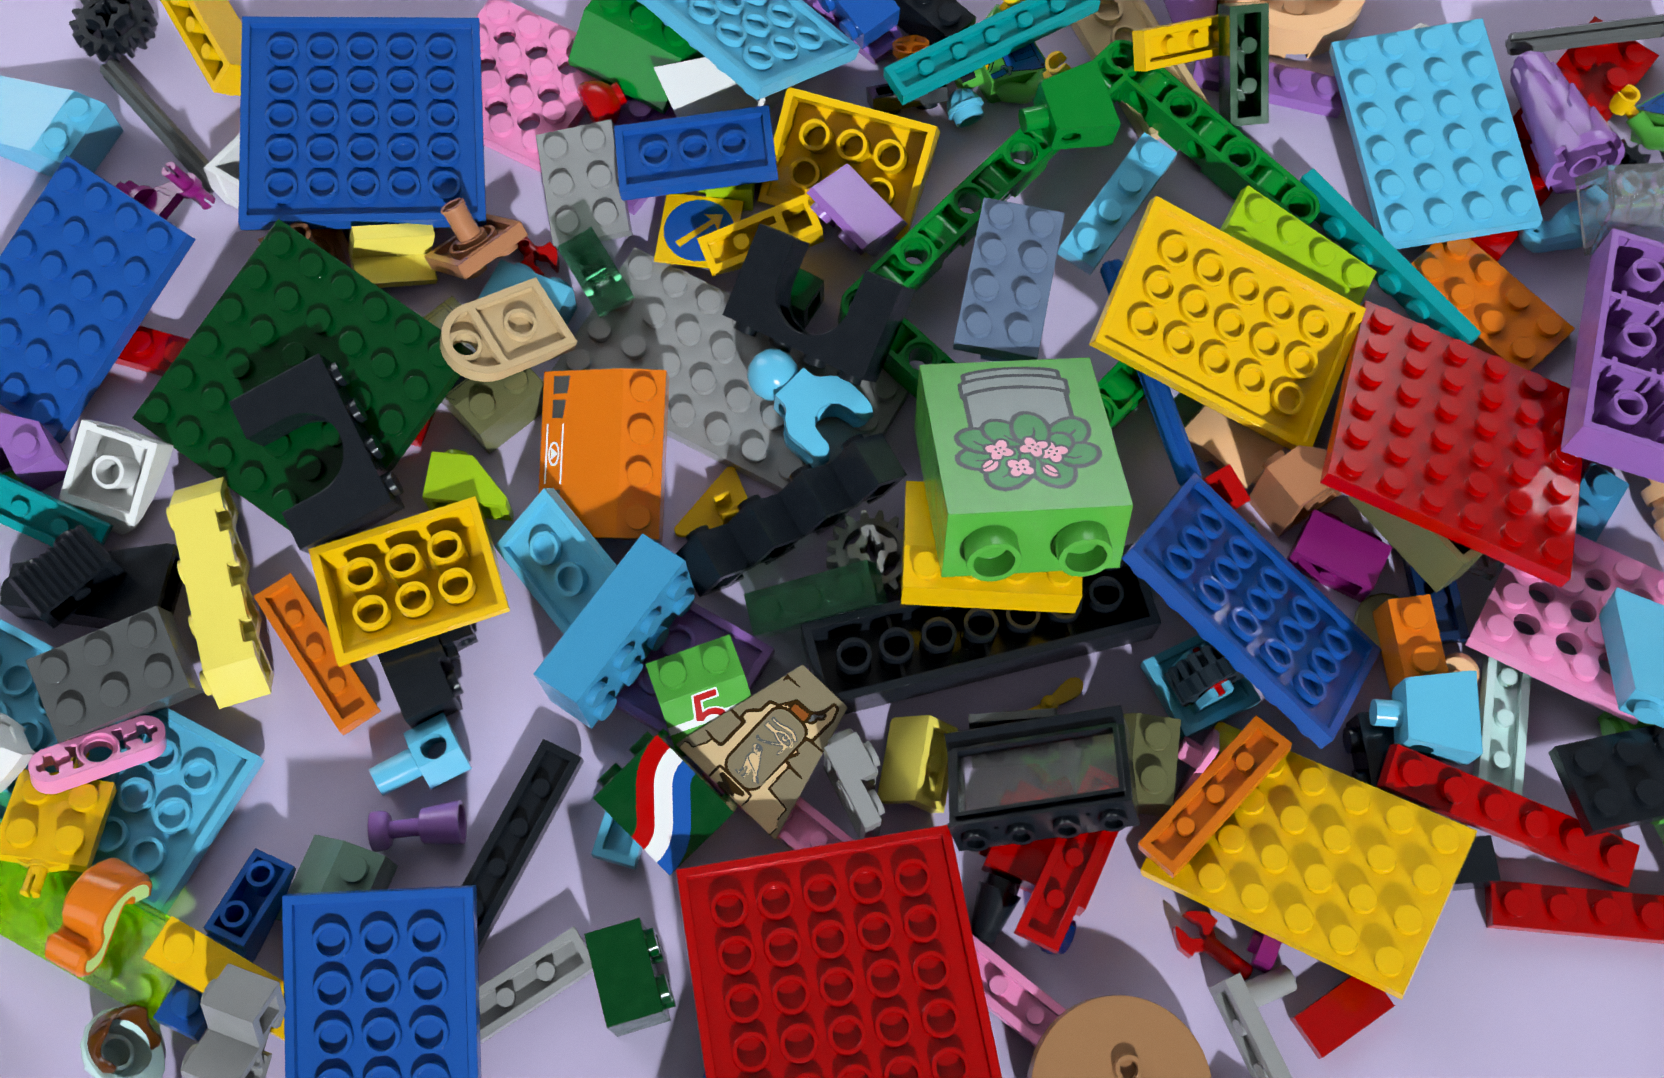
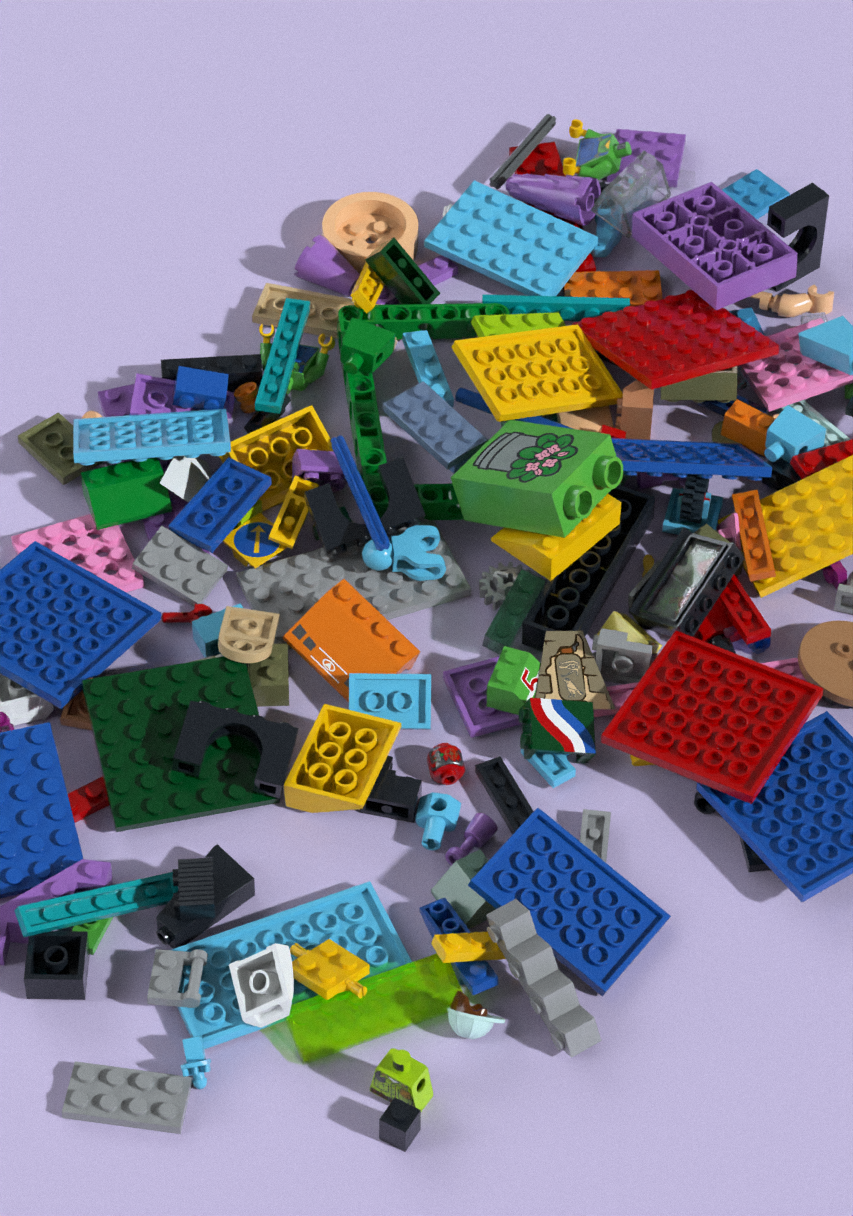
camera: 50 degrees left, 20 degrees down
(88, 771) = (310, 930): bright pink beam -> none
(92, 914) = (400, 975): orange animal -> none
(114, 473) = (141, 850): white slope -> none
(114, 674) = (274, 899): dark grey brick -> none
(217, 590) = (273, 846): light yellow brick -> none
(311, 648) = (333, 831): orange plate -> none
(392, 254) = (133, 659): light yellow panel -> none
(459, 476) = (302, 714): lime slope -> none
(473, 246) = (171, 627): nougat plate -> none
(520, 702) = (445, 764): none -> red head
(595, 272) = (237, 588): clear green arch -> none
(601, 100) = (138, 530): red brick -> none
(617, 632) = (458, 689): dark azure brick -> none
(628, 976) = (631, 795): dark green brick -> none
(716, 505) = (424, 632): yellow piece -> none
(806, 505) = (459, 596): black brick -> none
(824, 284) = (360, 493): none -> blue axle
(964, 107) = (300, 397): medium azure plate -> none
(1209, 944) = (811, 595): red bar -> none
(1339, 555) = (683, 423): magenta brick -> none

